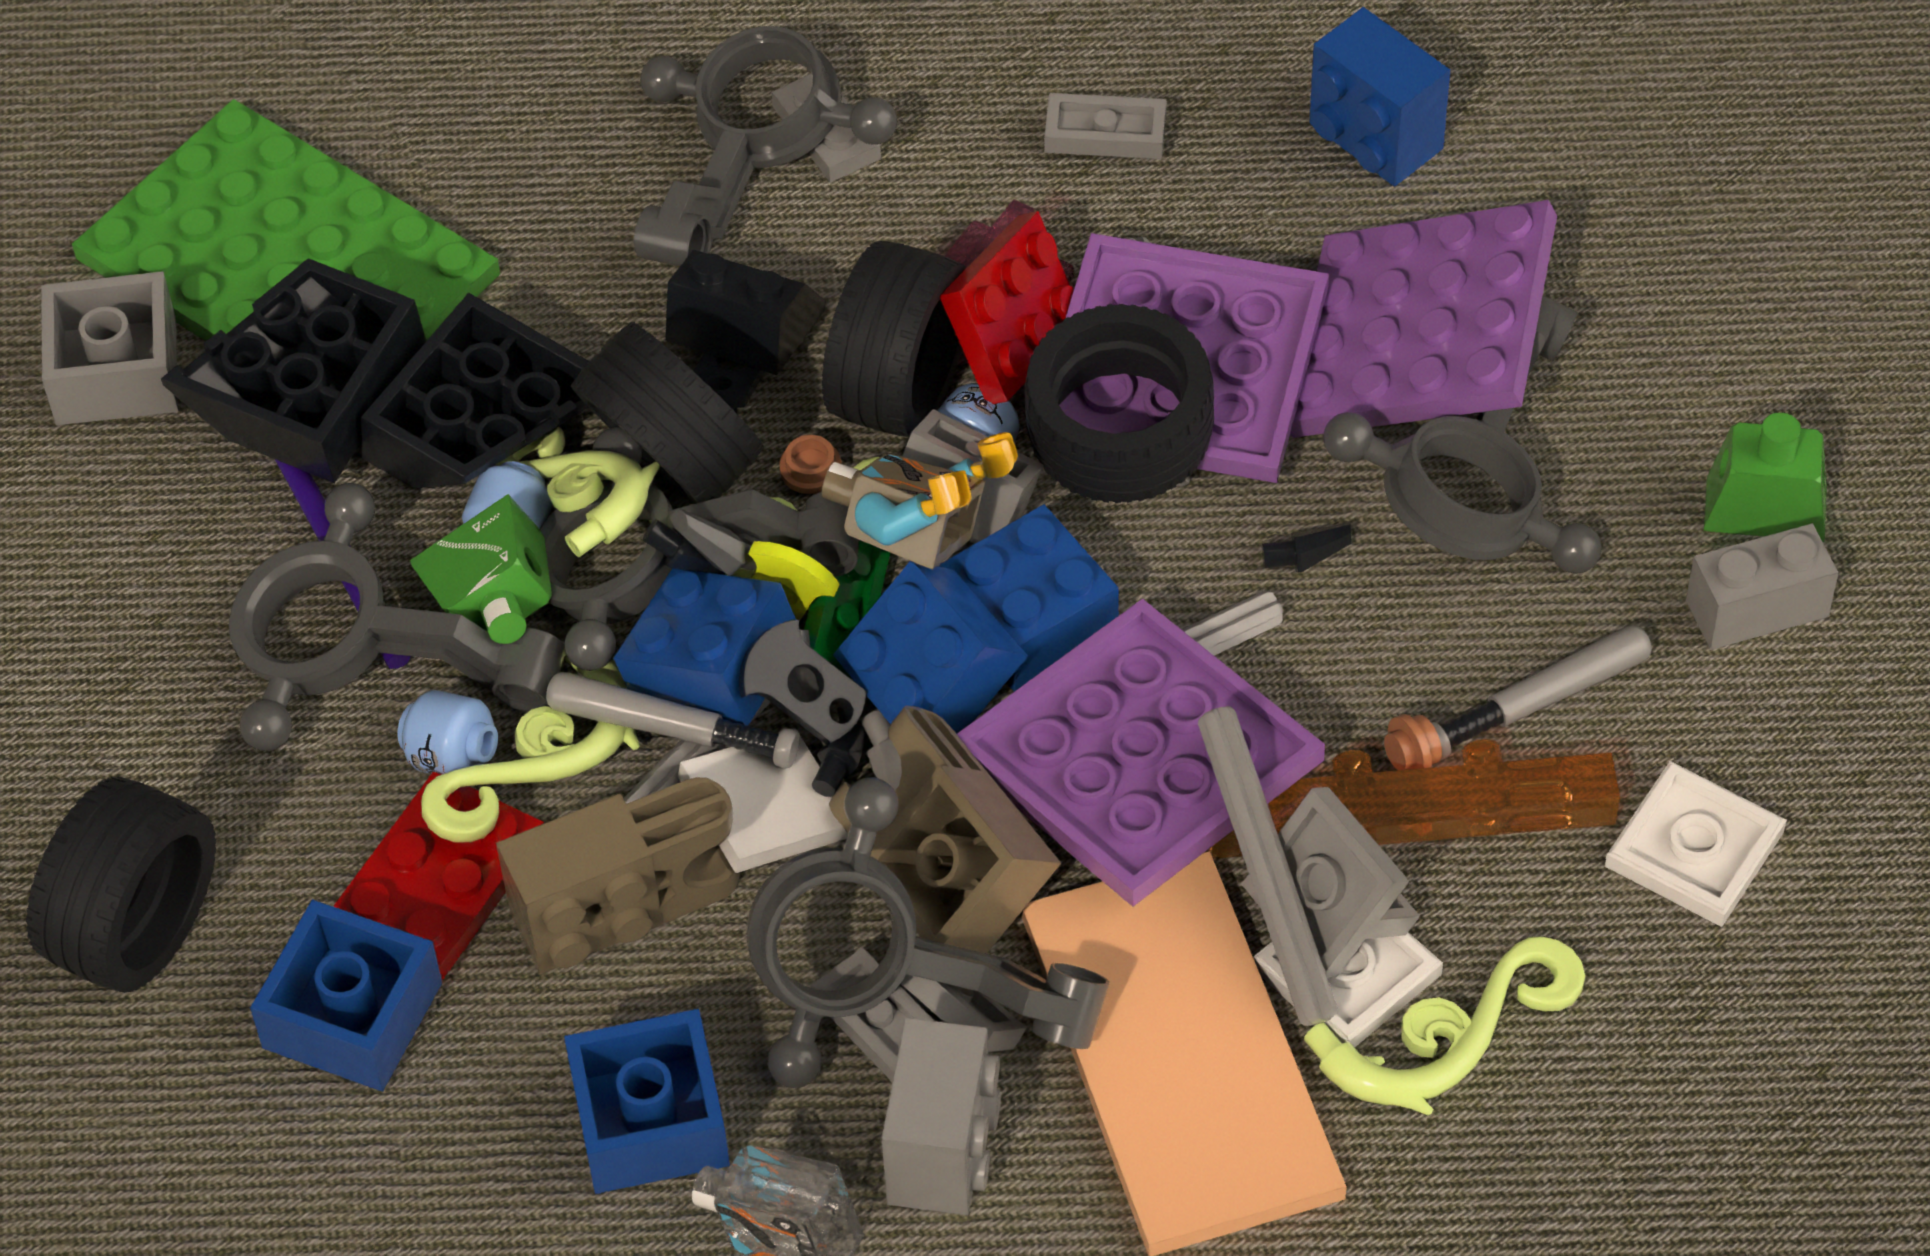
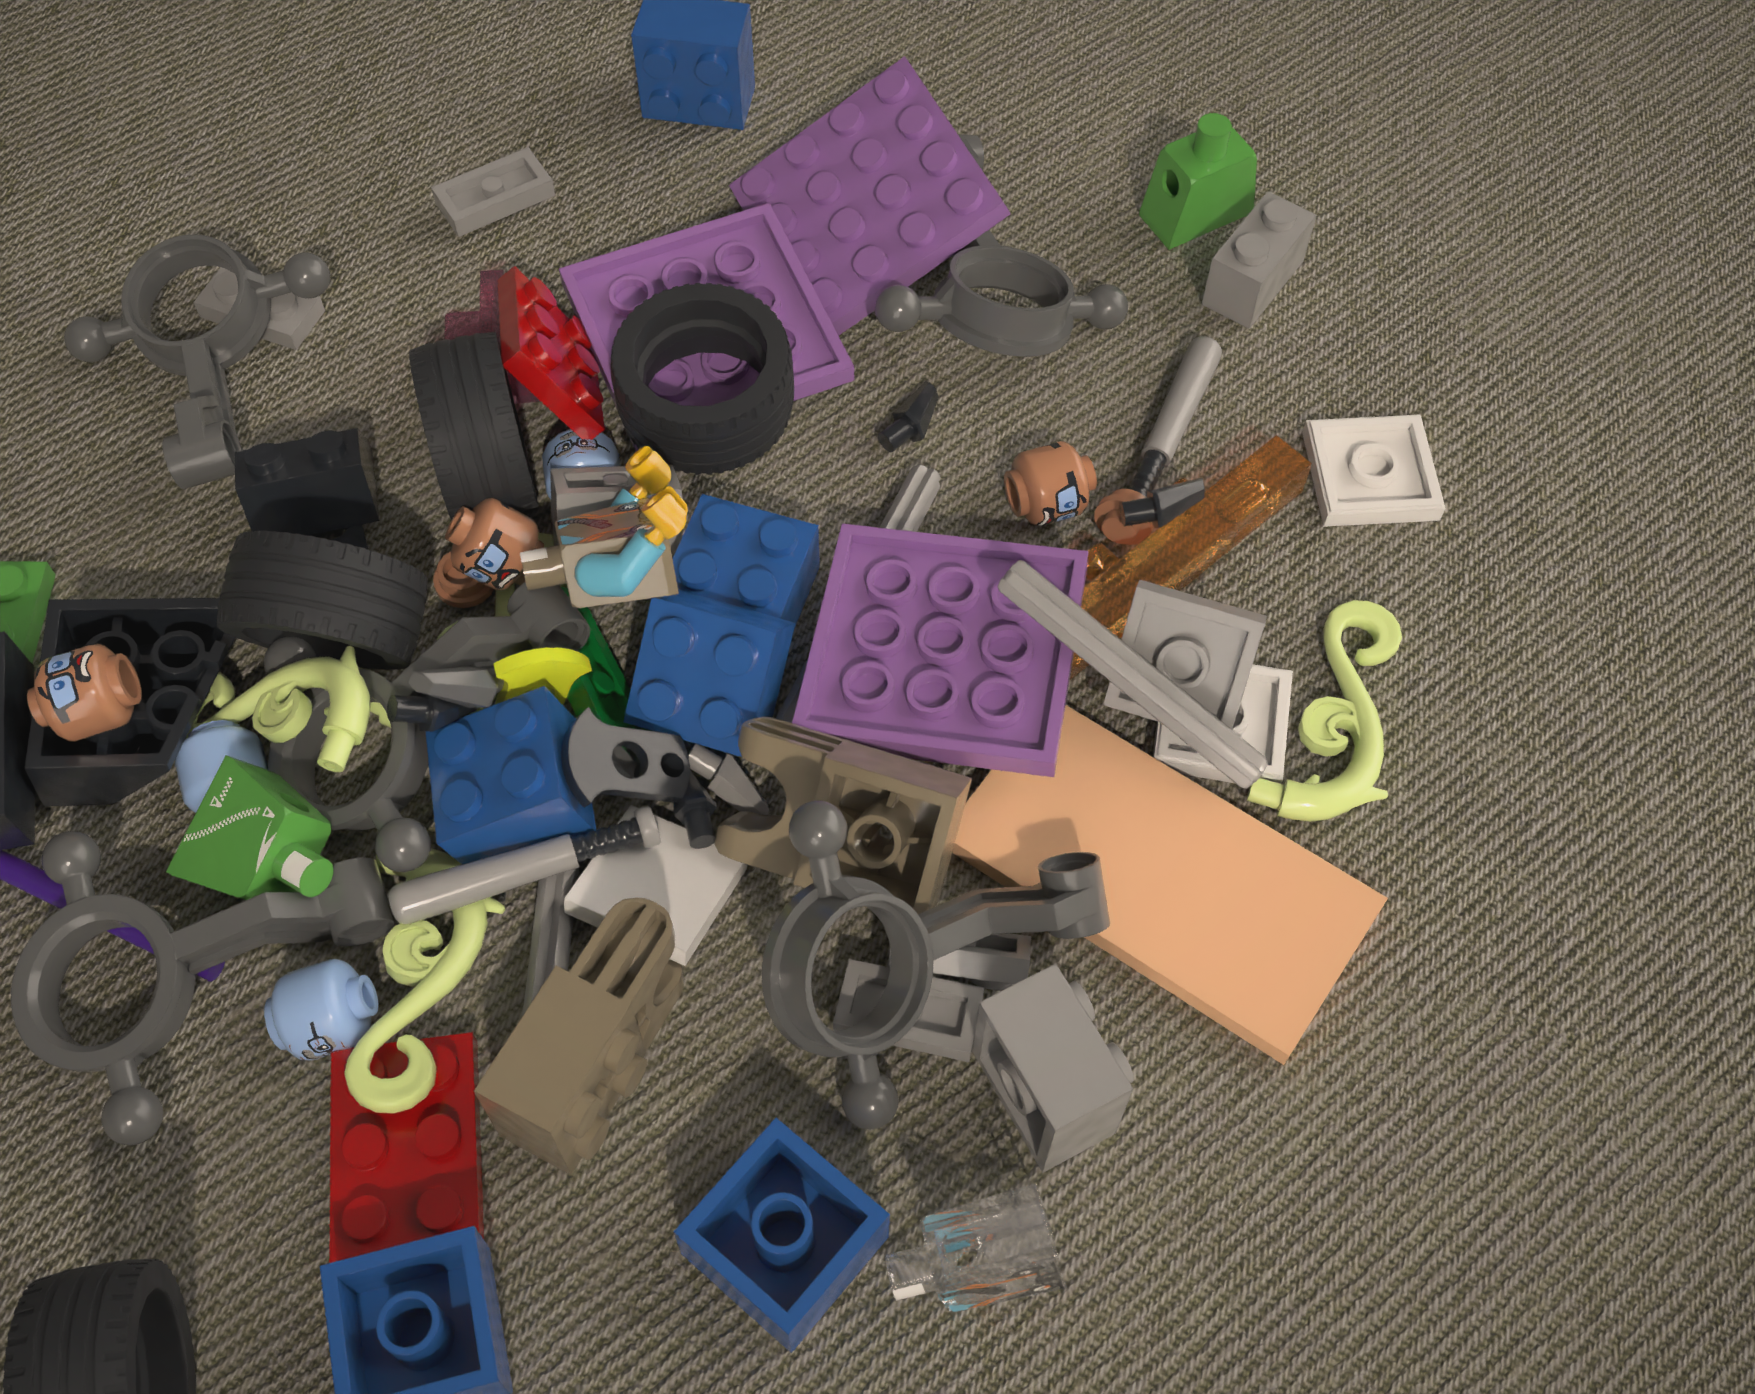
camera: 40 degrees left, 5 degrees up
(439, 382) = (84, 692): none -> nougat head
(841, 437) = (490, 543): none -> nougat head
(1372, 676) = (1049, 483): none -> nougat head
(1441, 748) = (1162, 504): none -> black bar

